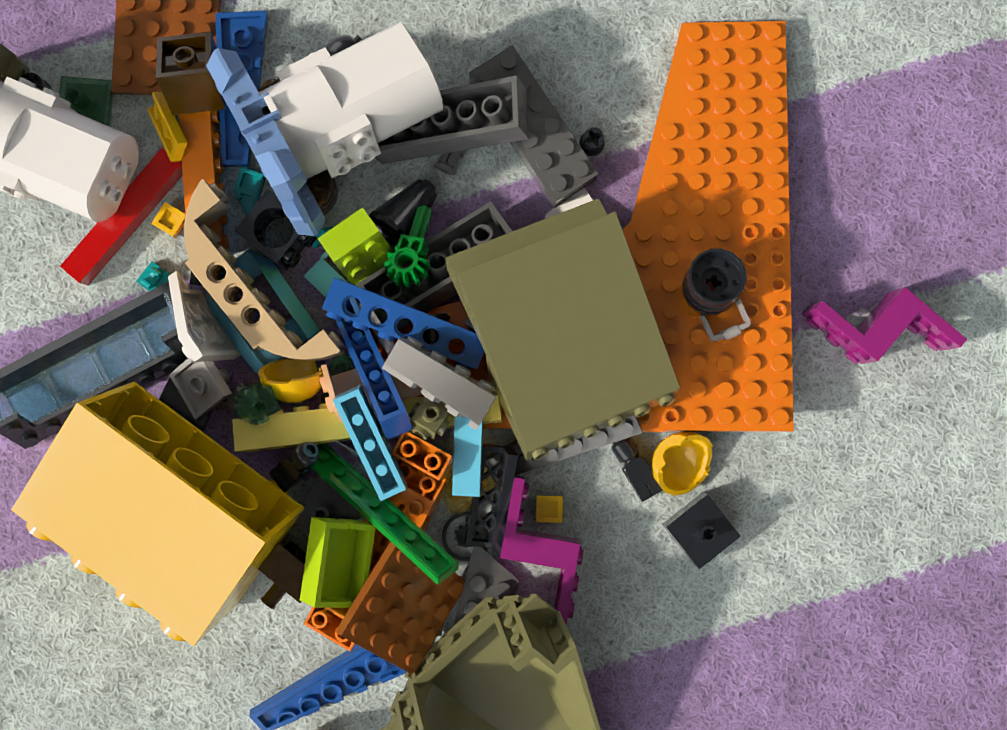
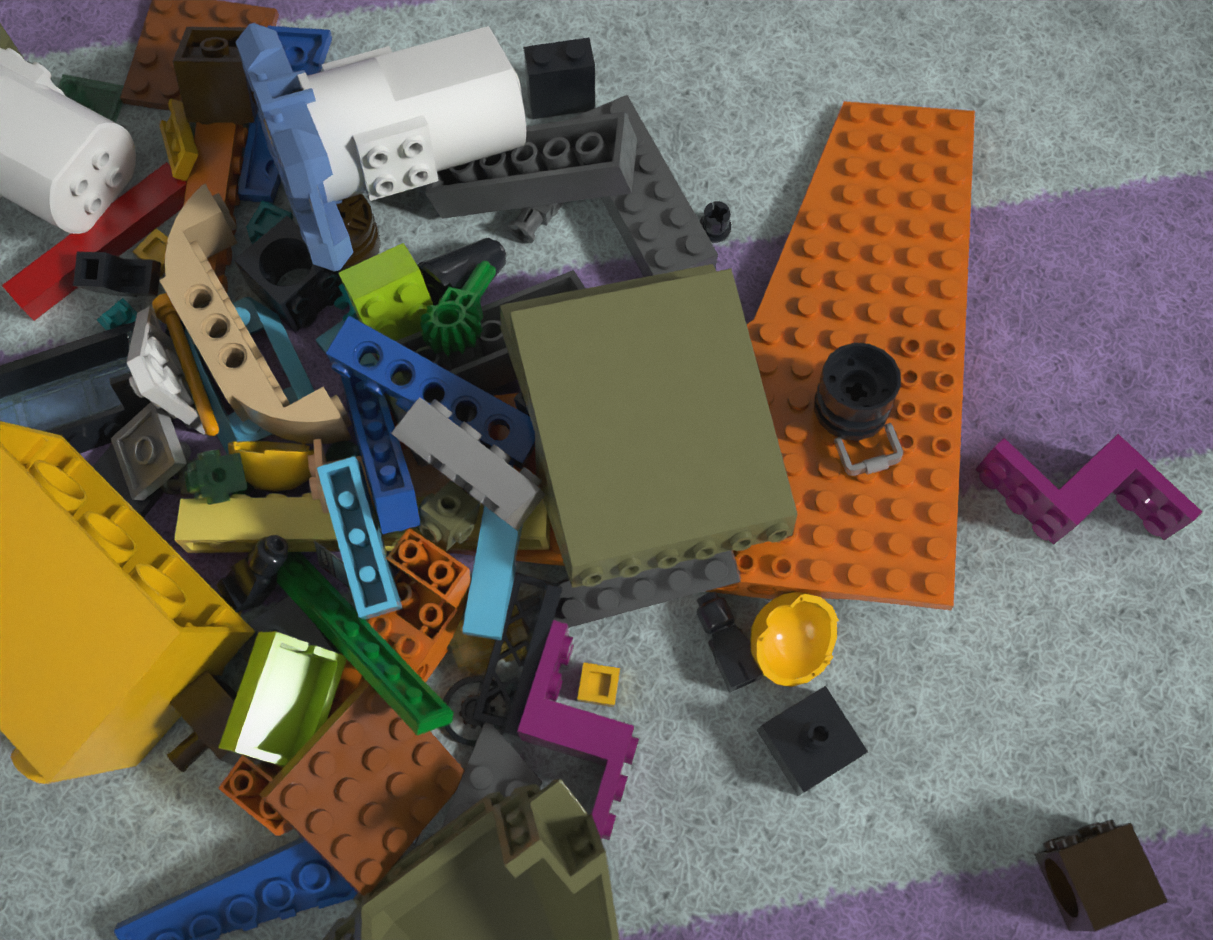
camera: 10 degrees right, 15 degrees down
(145, 246) = (116, 275): none -> black brick
(215, 314) = (168, 315): none -> light orange piece
(458, 36) = (560, 78): none -> black brick
(901, 598) = (1099, 876): none -> dark brown brick

